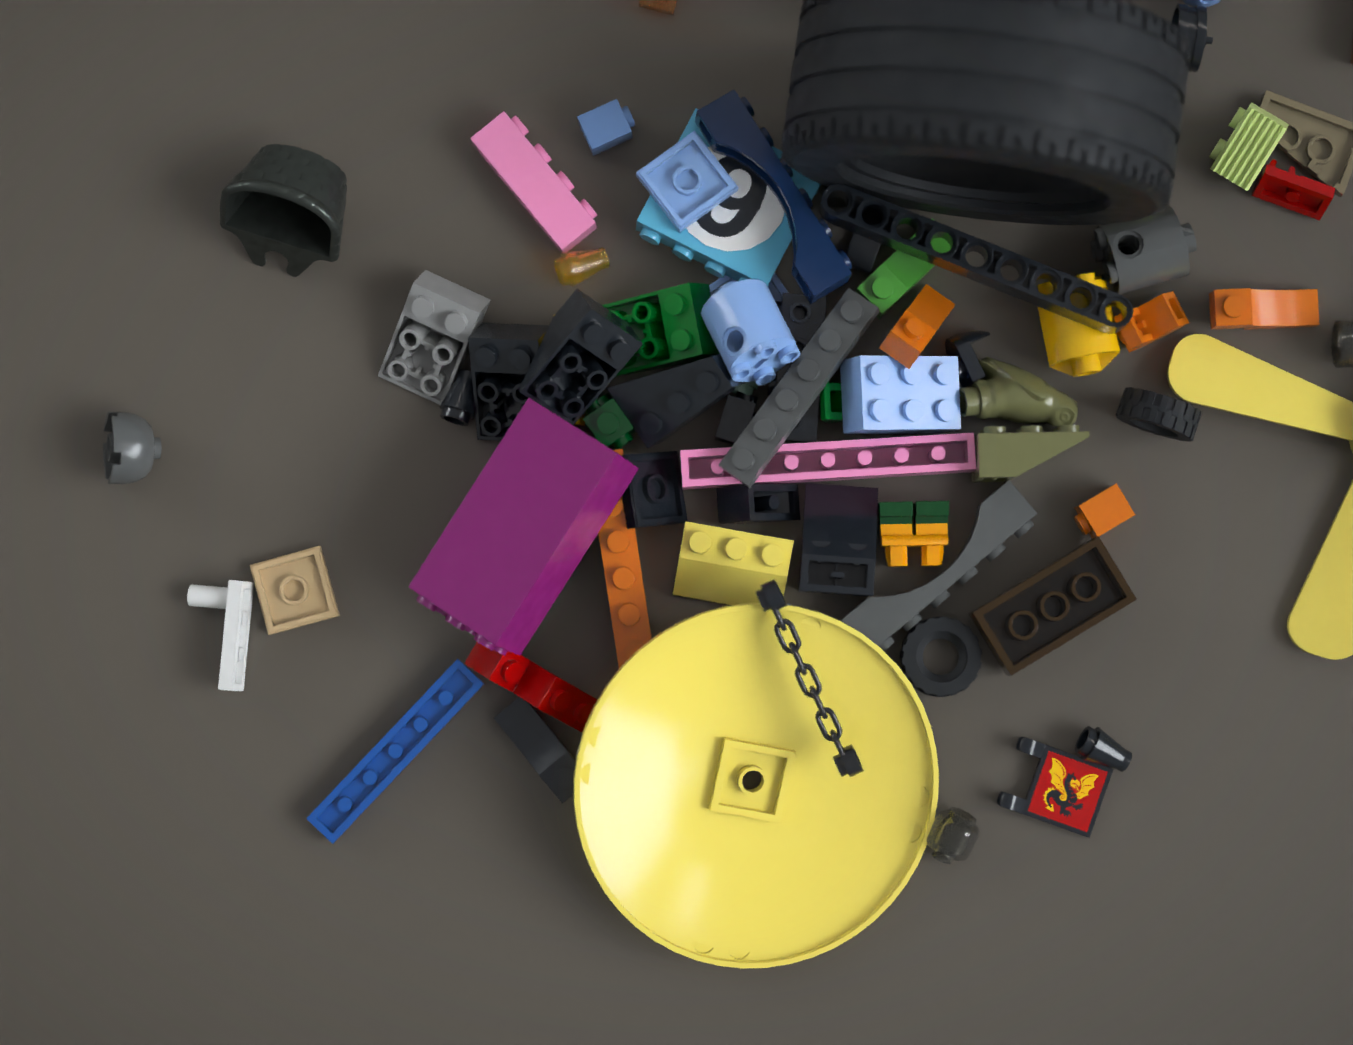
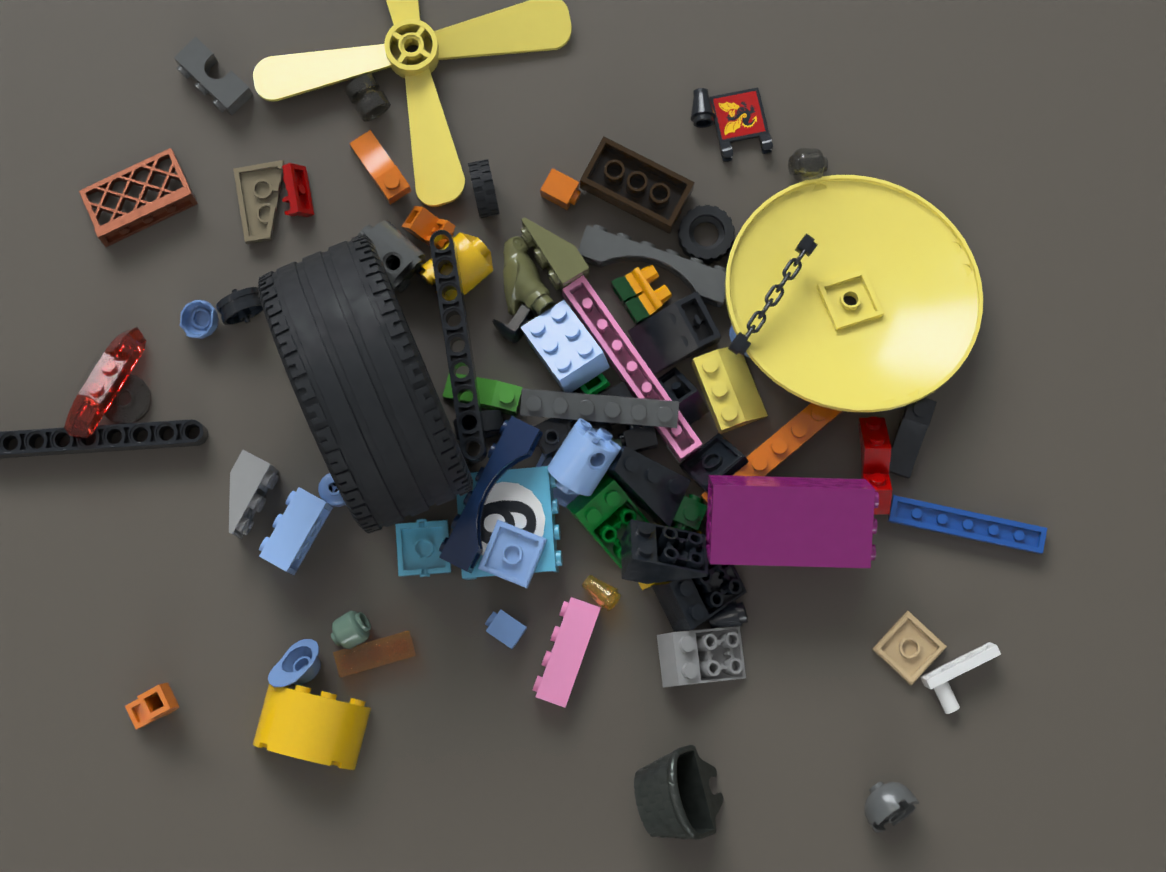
camera: 125 degrees left, 5 degrees down
(763, 80) = (419, 548): none -> medium azure plate
(917, 326) = (517, 361): orange slope -> none
(1249, 145) = (286, 231): yellowish green brick -> none

